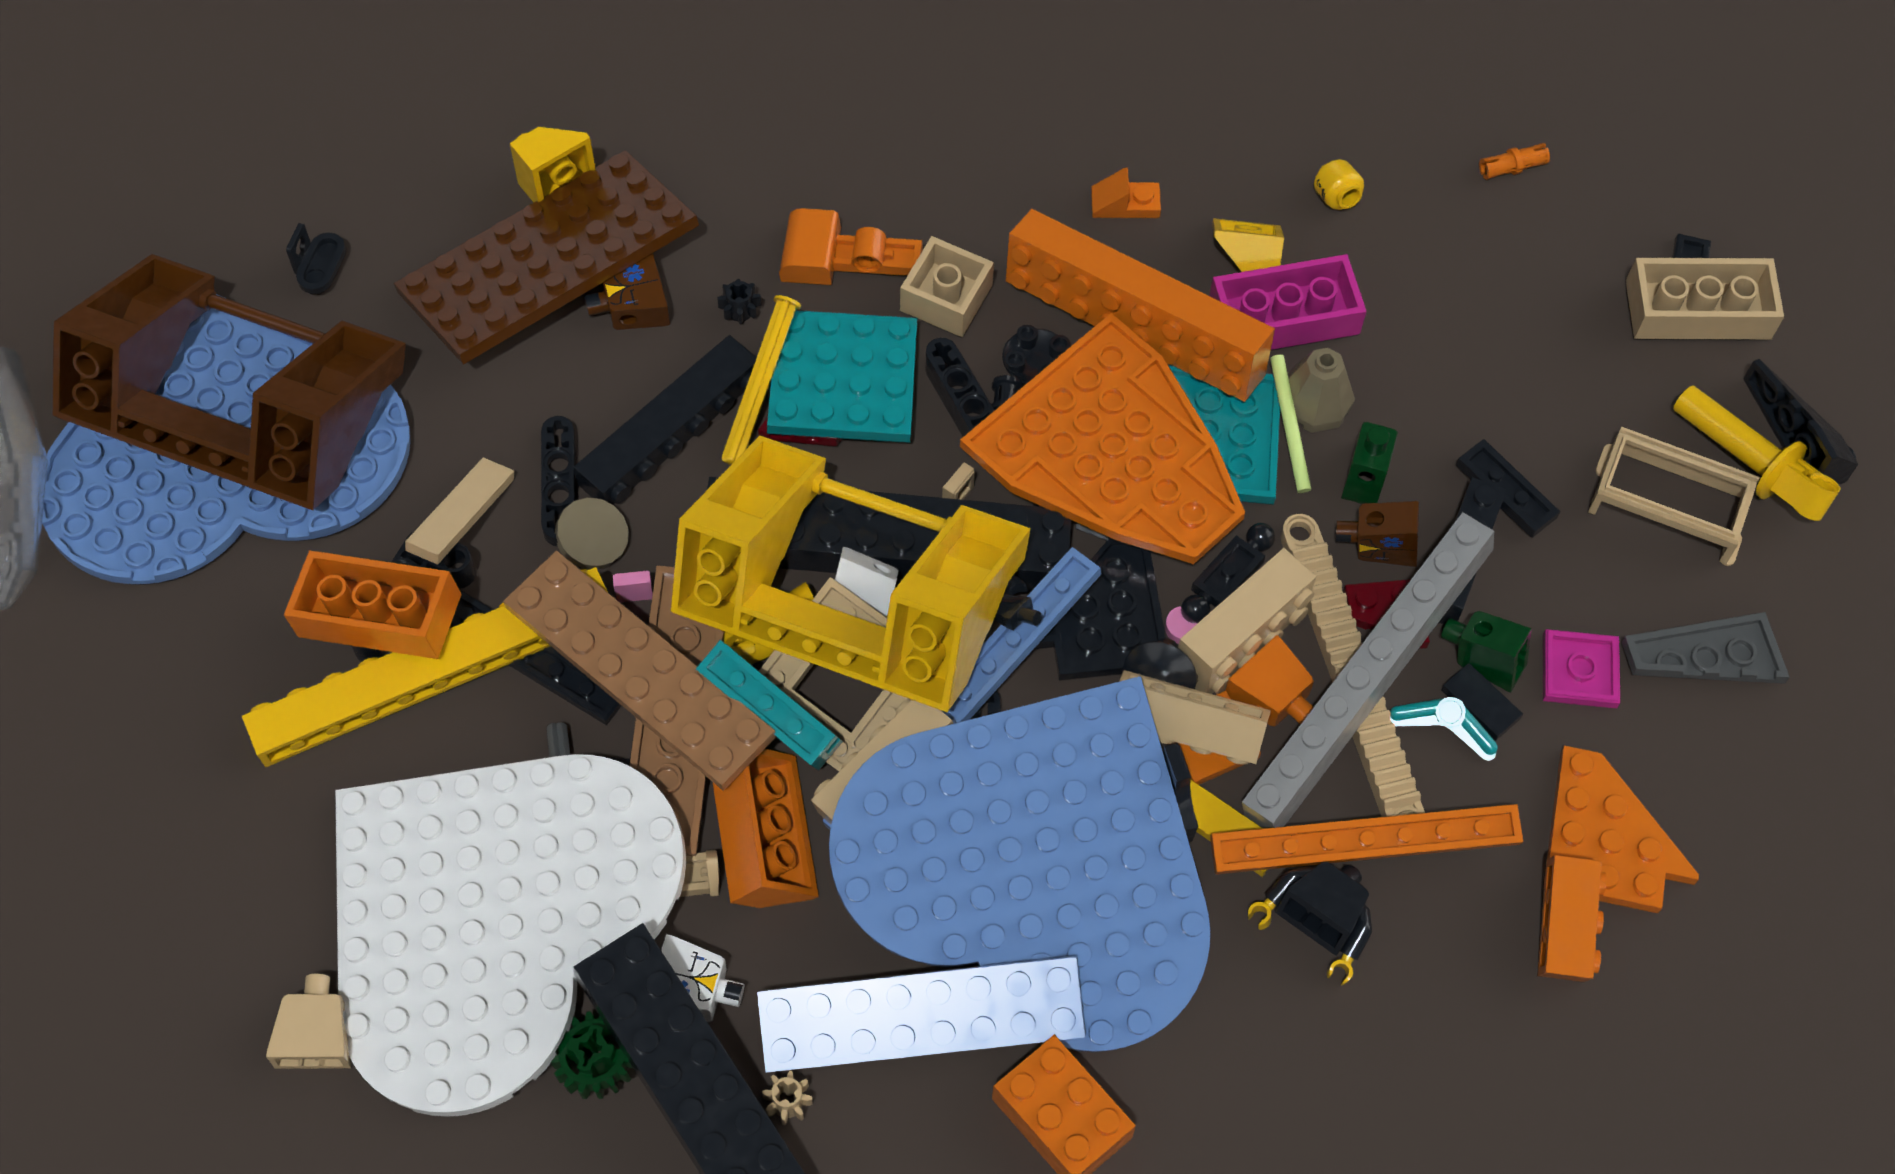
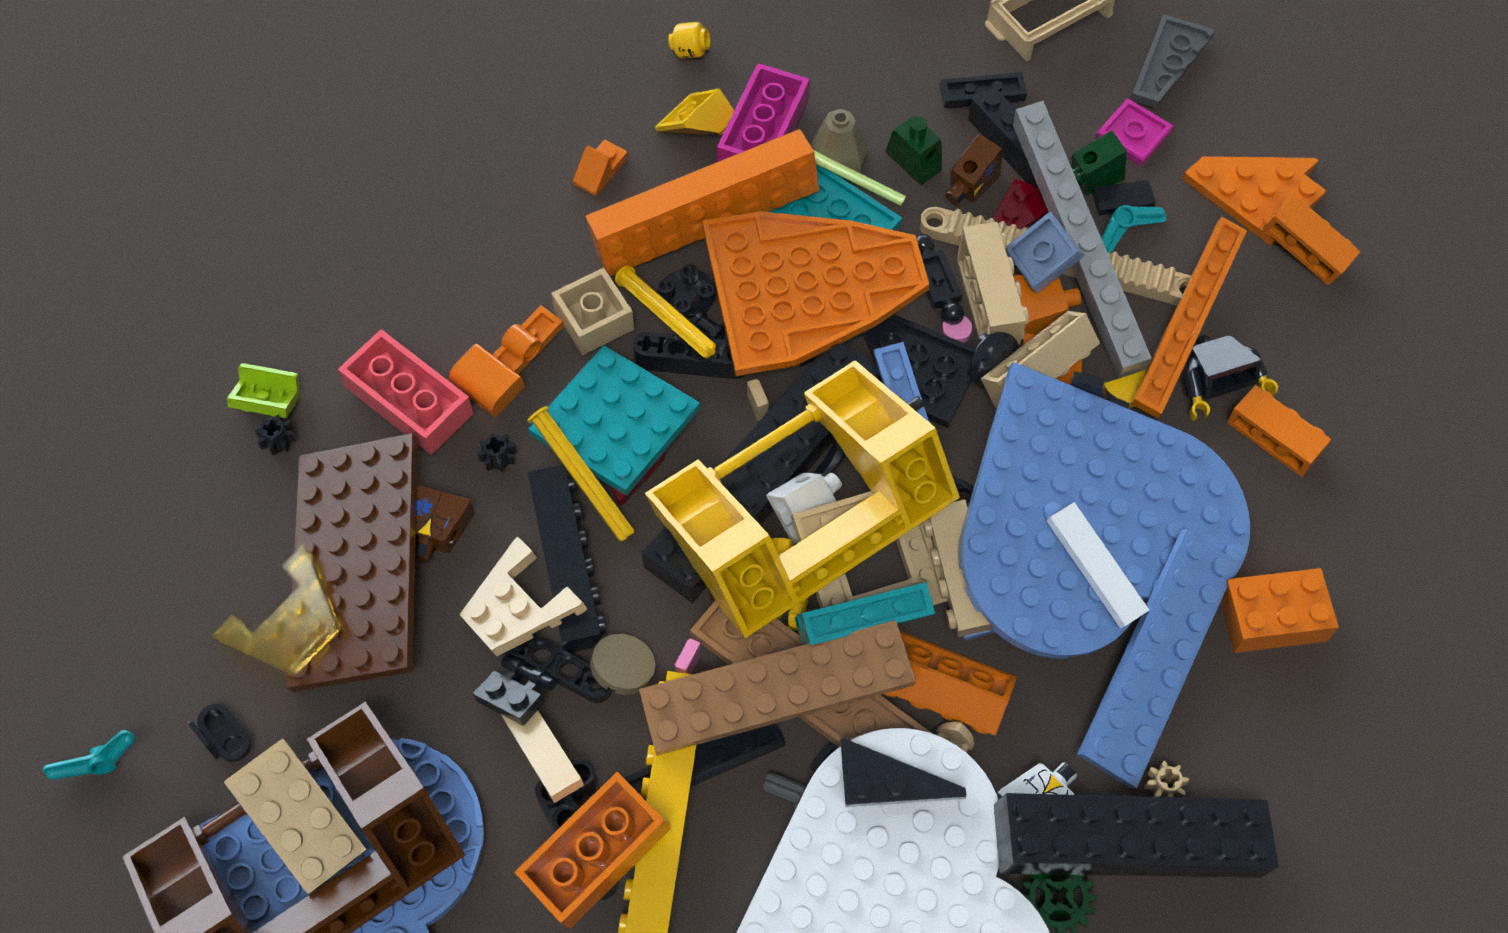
camera: 55 degrees left, 0 degrees up
(239, 190) = (99, 762): none -> teal piece
(263, 335) = (295, 816): none -> tan brick
(449, 250) = (295, 628): none -> clear yellow wing
(496, 456) = (511, 698): none -> black plate
(550, 159) = (274, 509): yellow slope -> none
(578, 403) = (505, 613): none -> wing
(598, 809) = (882, 780): none -> black wing
(631, 118) = (275, 434): none -> black gear
(668, 83) = (265, 391): none -> lime bracket
(744, 189) = (406, 391): none -> coral brick
(968, 888) = (1097, 565): none -> white tile
(1012, 295) = (628, 278): none -> yellow axle
(1294, 1008) = (1279, 430): none -> orange brick
(1320, 645) = (1044, 252): none -> sand blue tile

